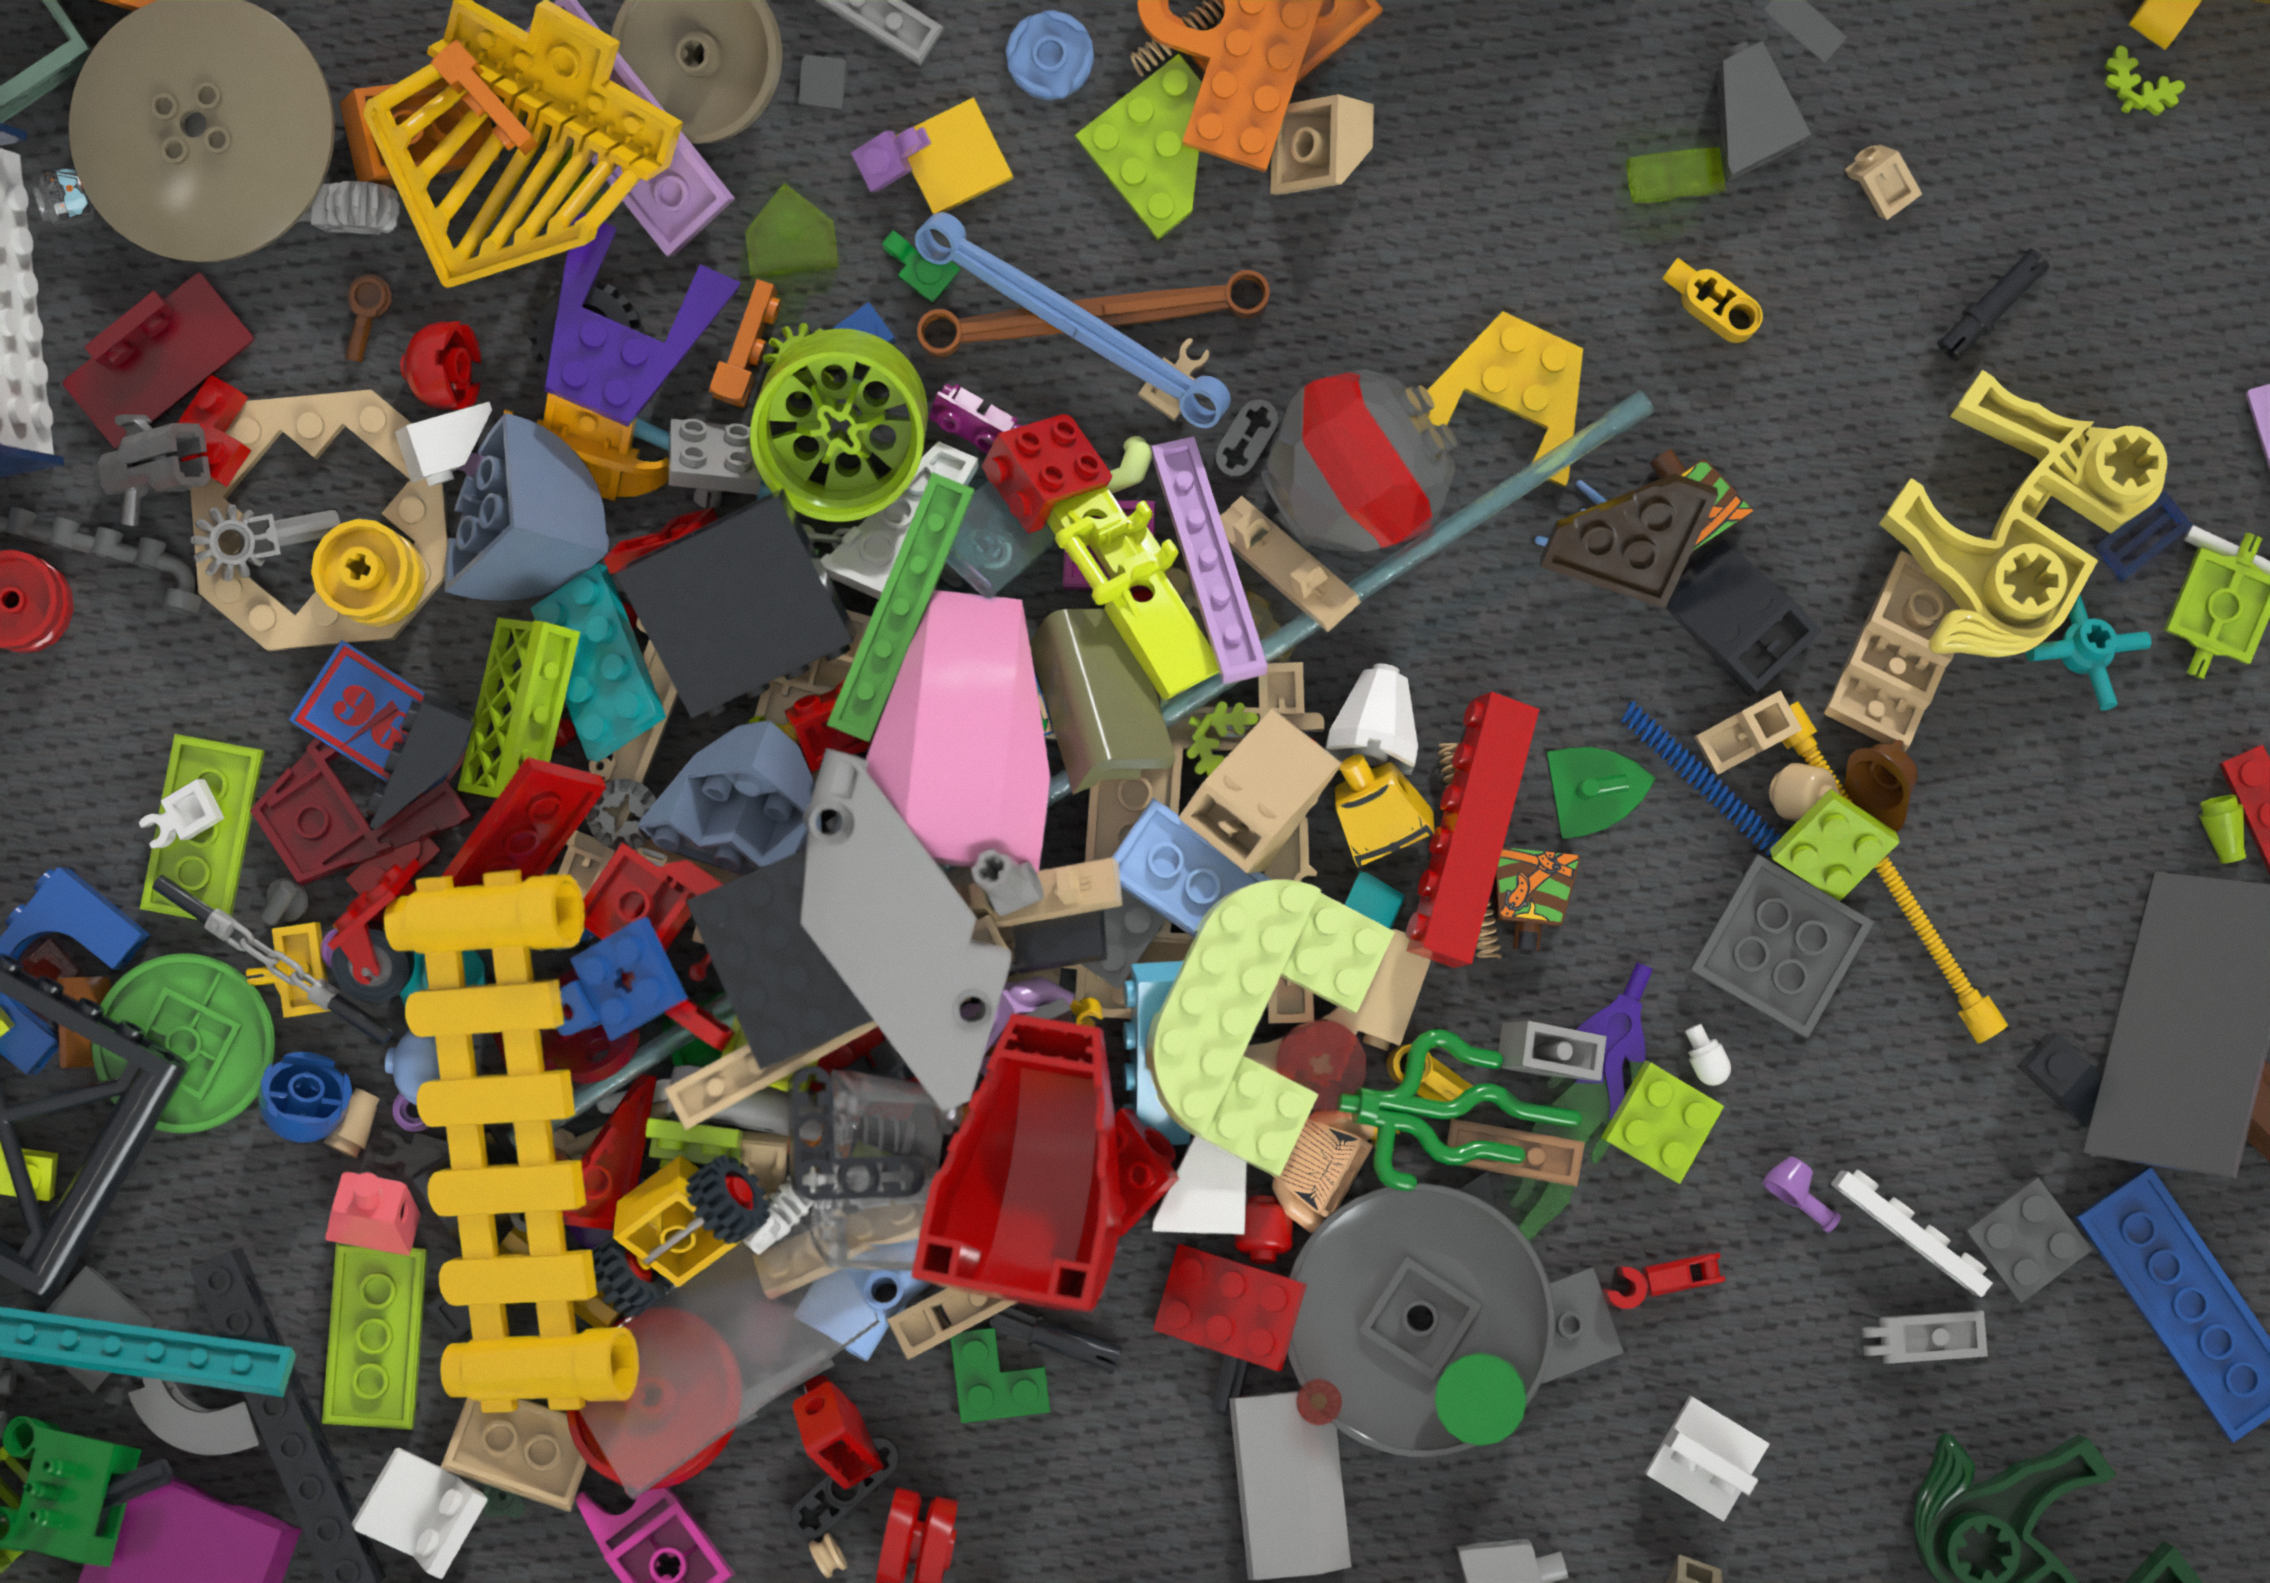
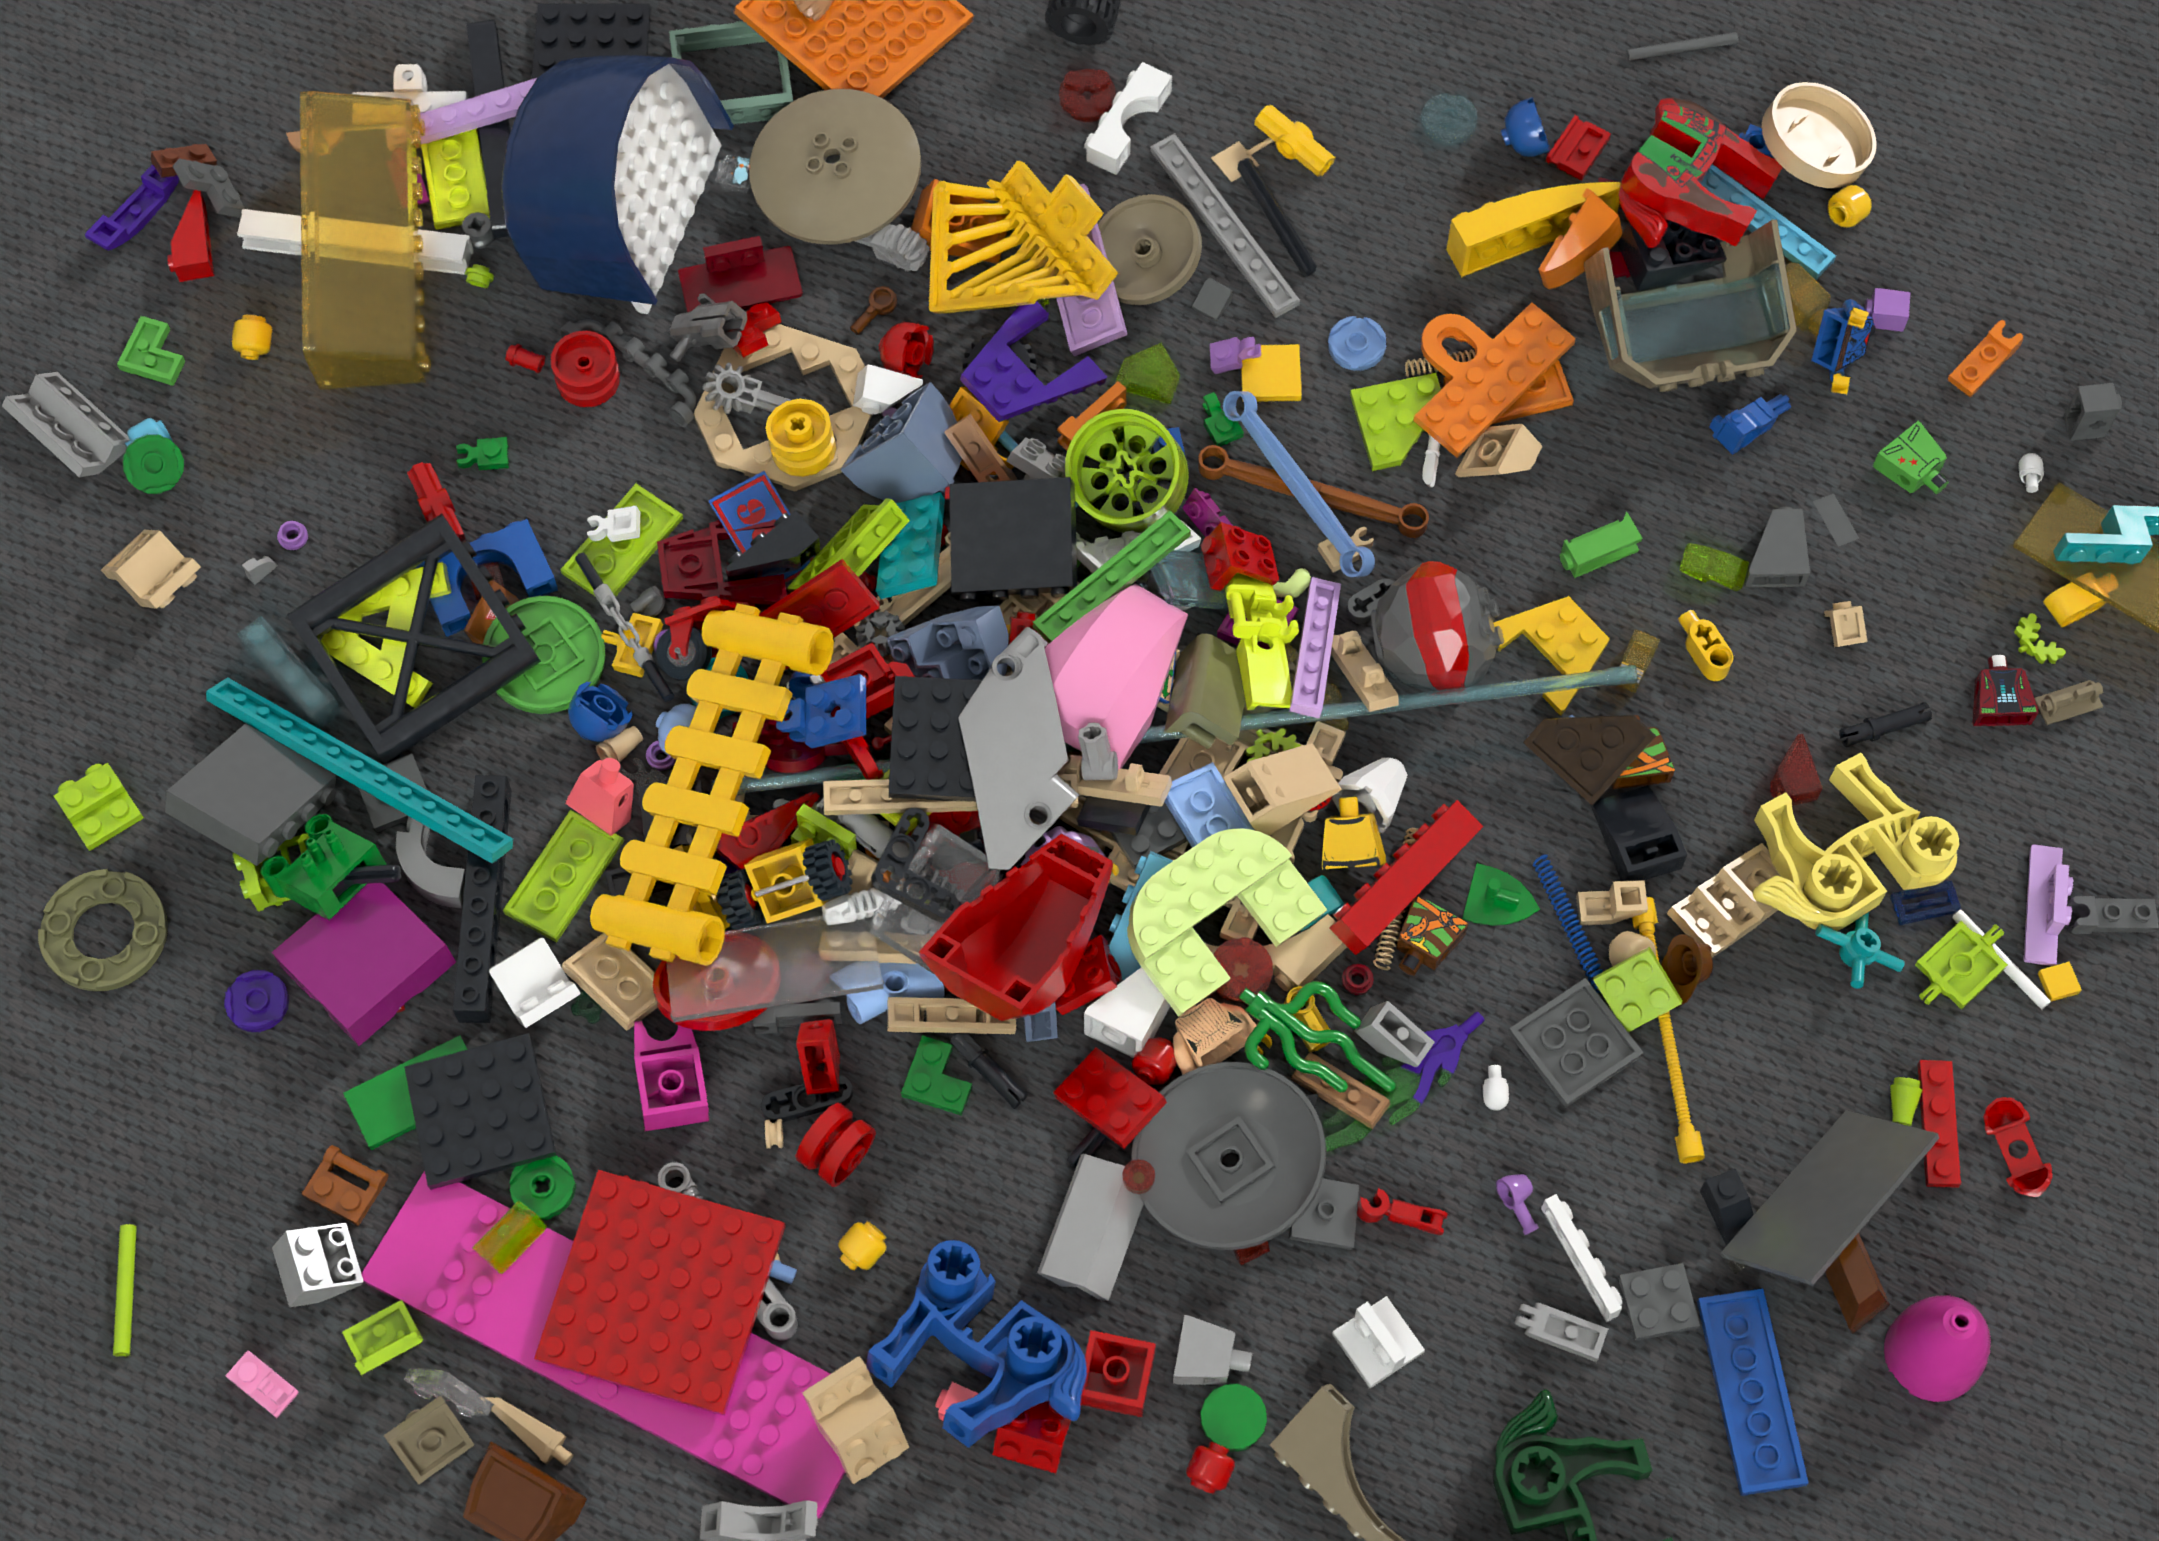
camera: 25 degrees right, 20 degrees down
(463, 73) = (1003, 199): orange plate -> none
(624, 483) = (977, 451): none -> medium nougat plate
(1232, 194) = (1431, 462): none -> white piece
(1480, 1398) = (1245, 1215): green tile -> none
(1481, 984) = (1357, 970): none -> dark red plate
(1514, 218) = (1600, 547): none -> bright green window
(1631, 362) = (1639, 653): none -> clear yellow leg
(1662, 1122) = (1447, 1115): lime plate -> none
(1907, 435) = (1797, 774): none -> clear red slope
(2129, 191) = (2003, 696): none -> torso
(2217, 156) = (2070, 701): none -> dark tan hinge

